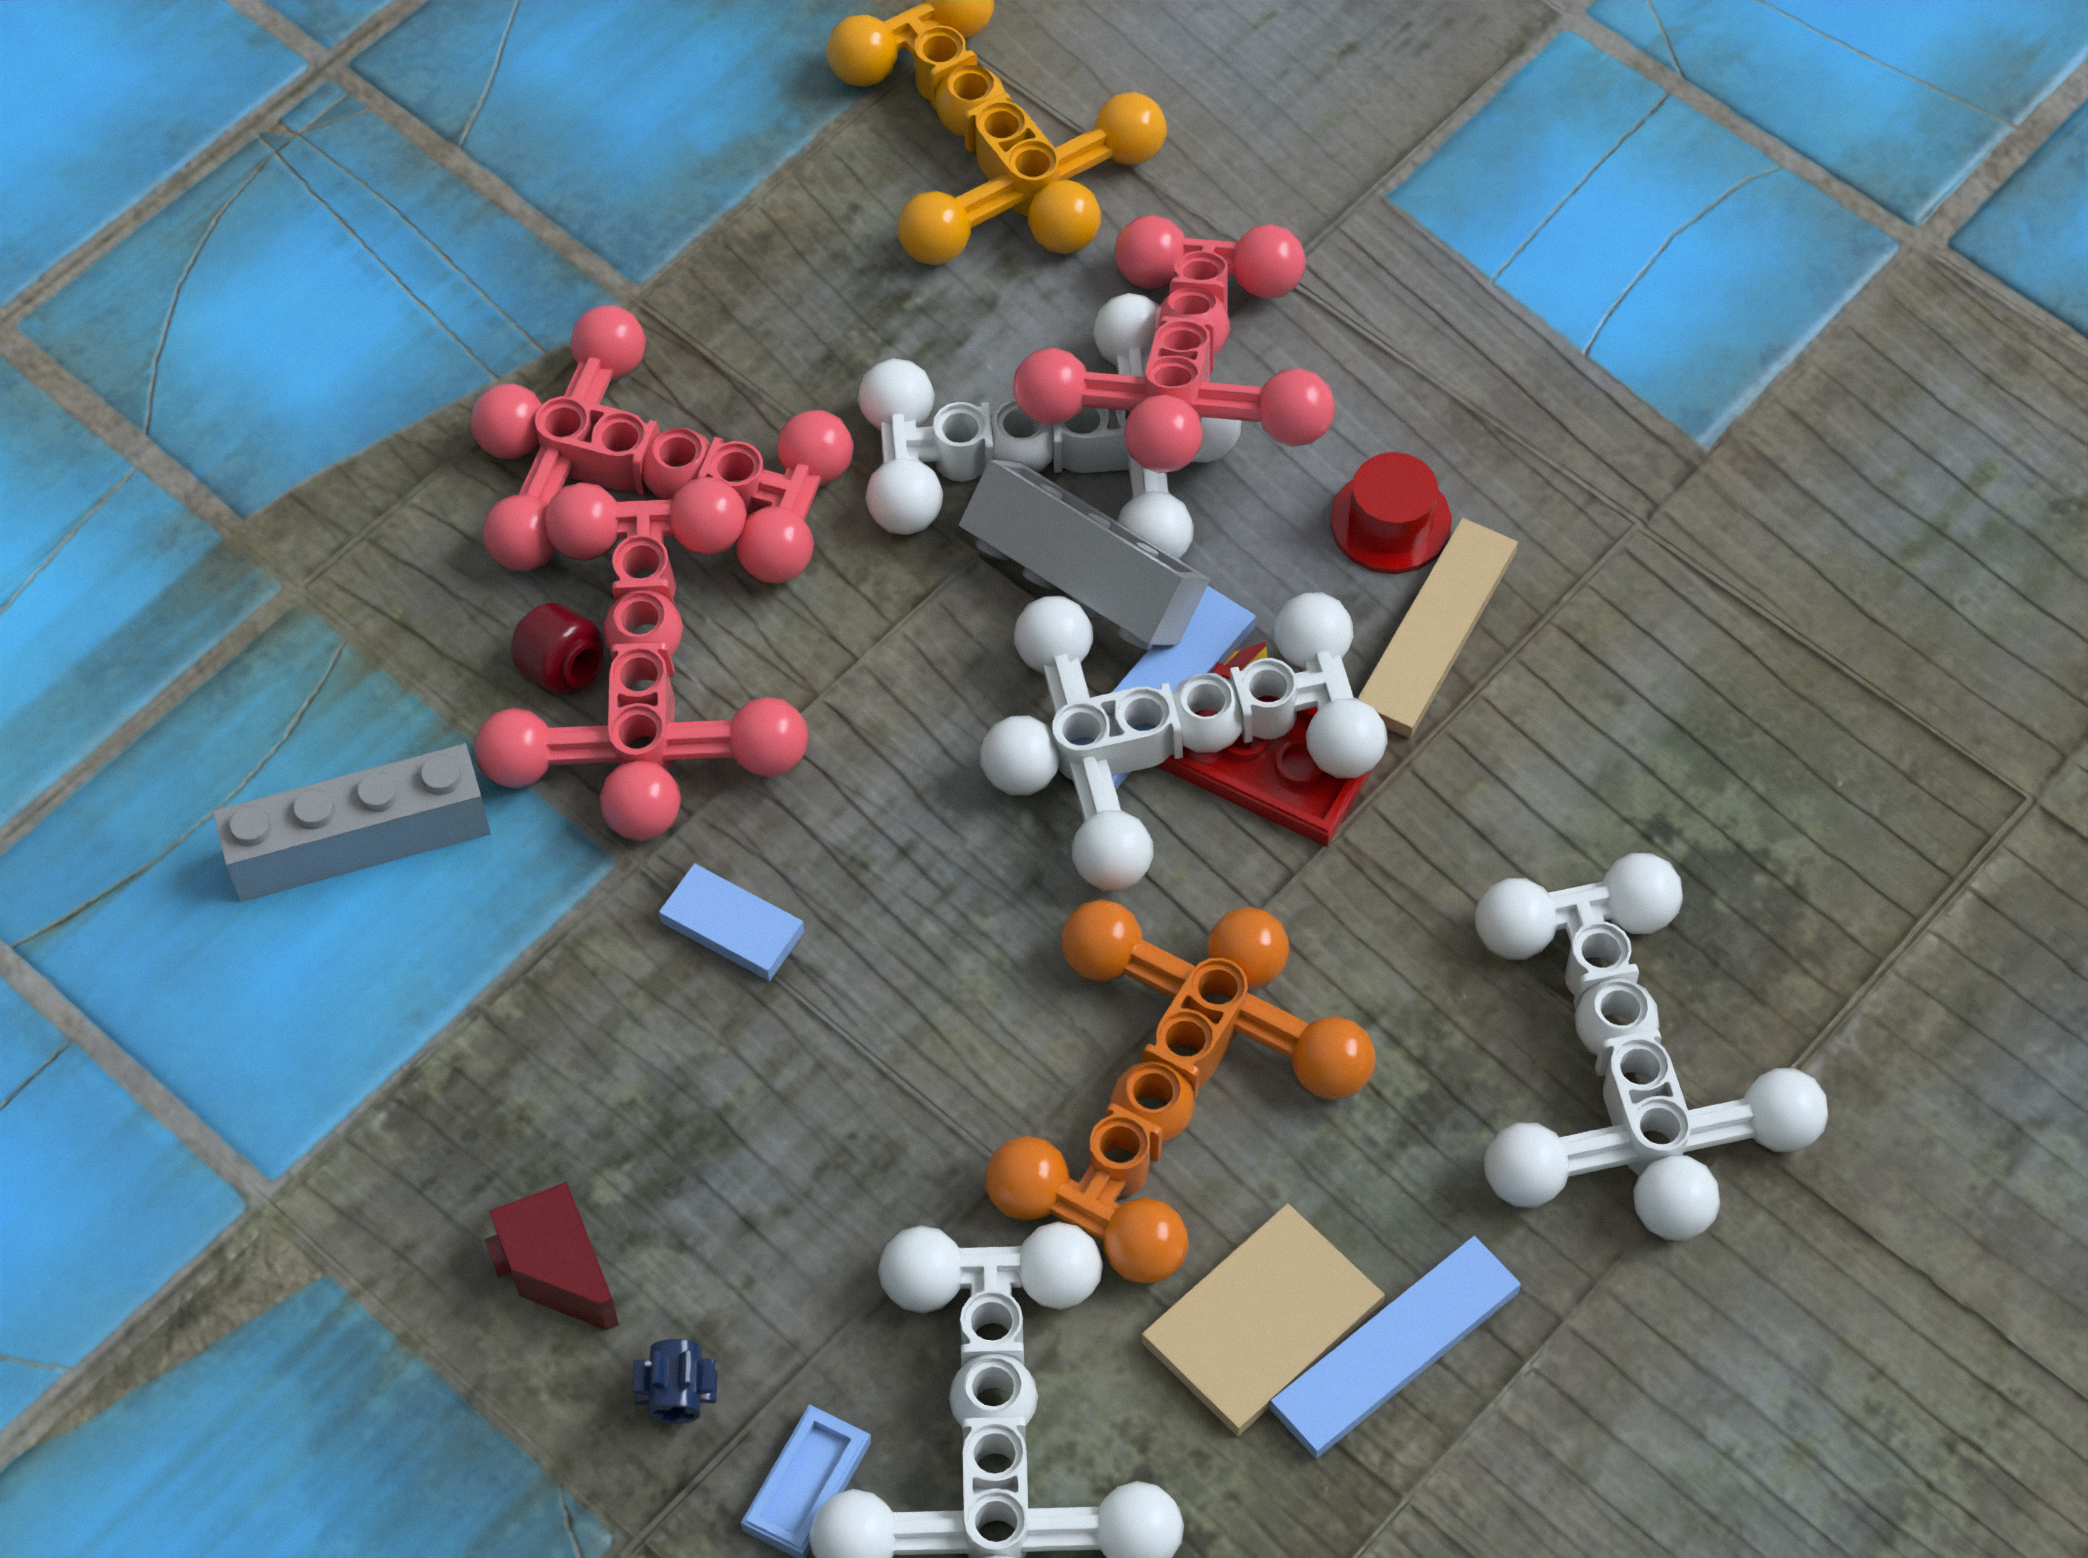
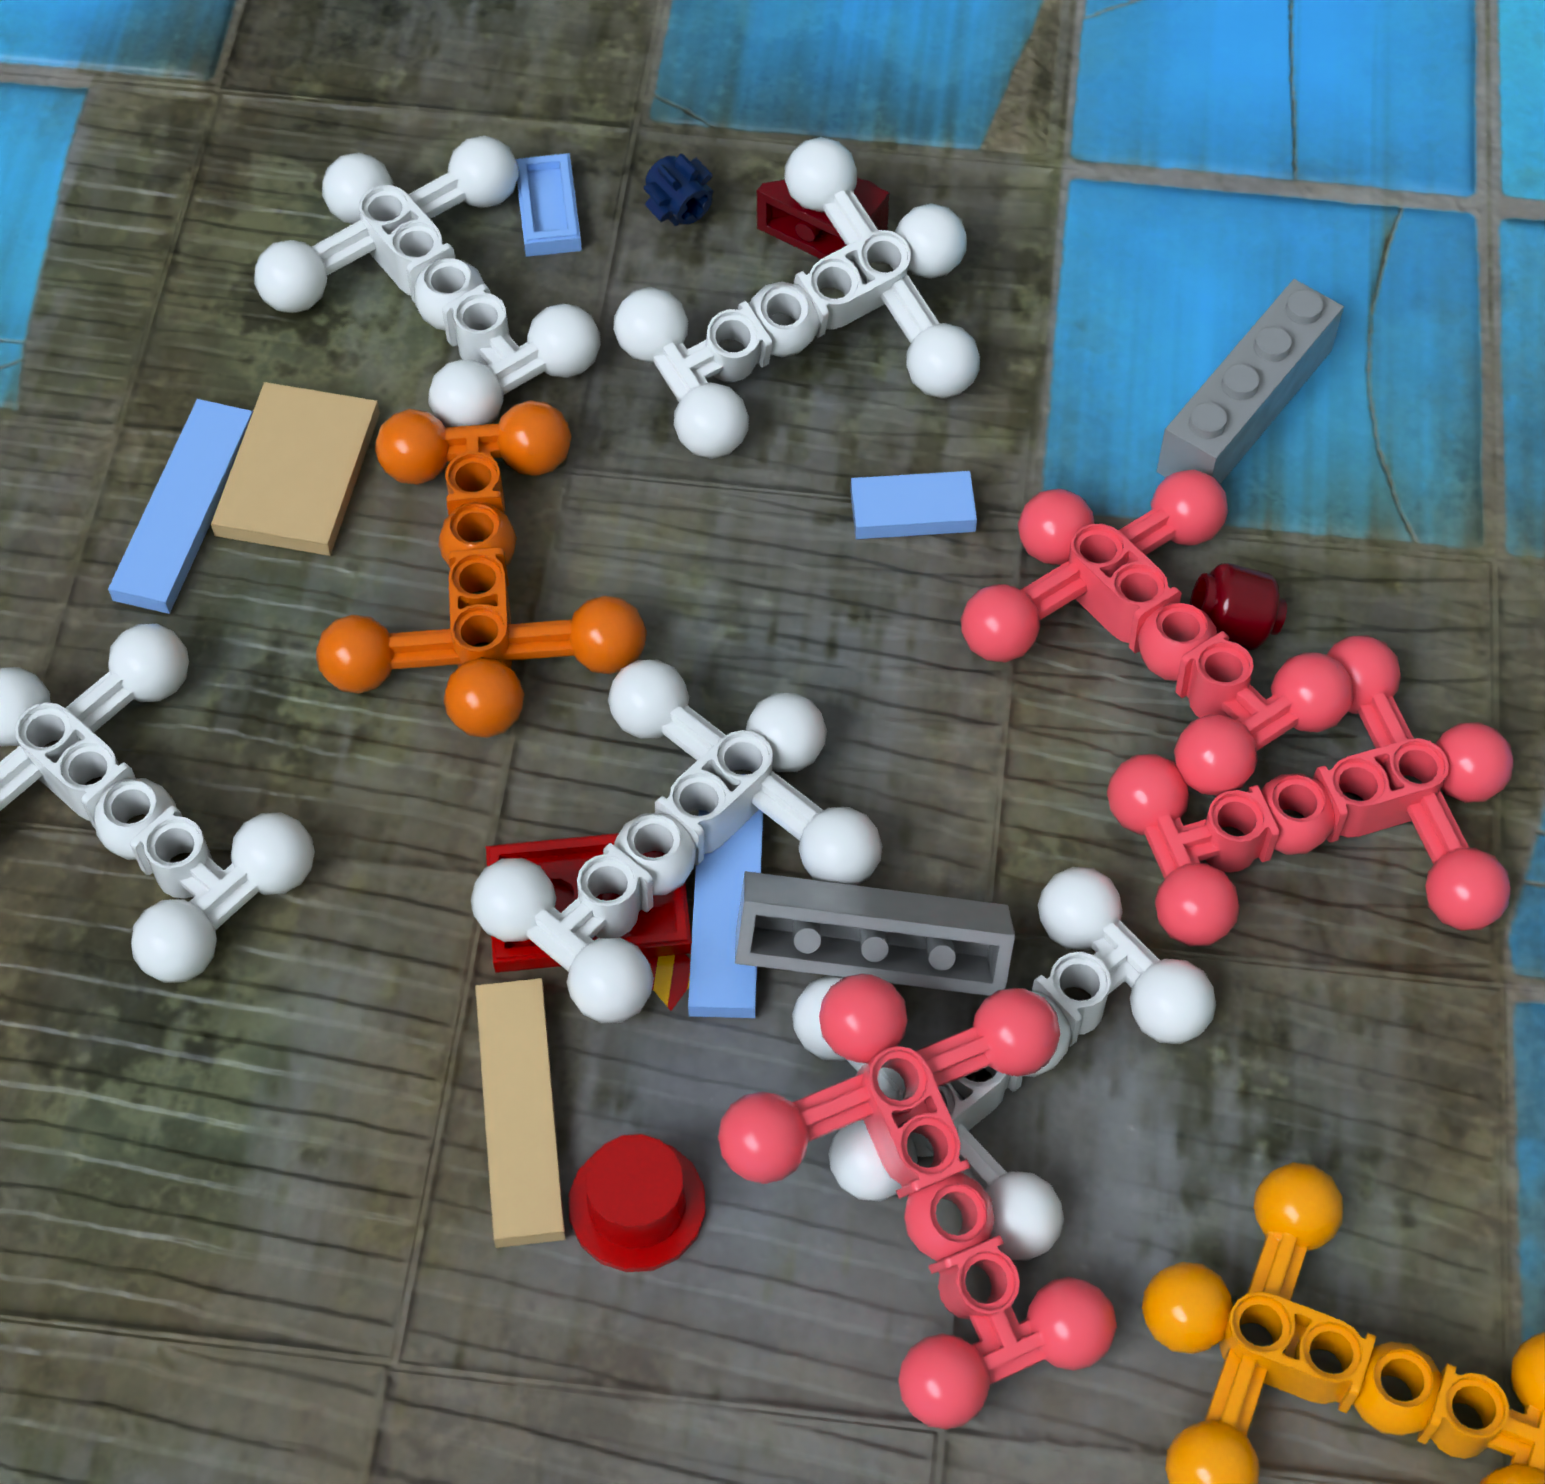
camera: 145 degrees right, 0 degrees up
(644, 1129) = (820, 178): none -> white piece

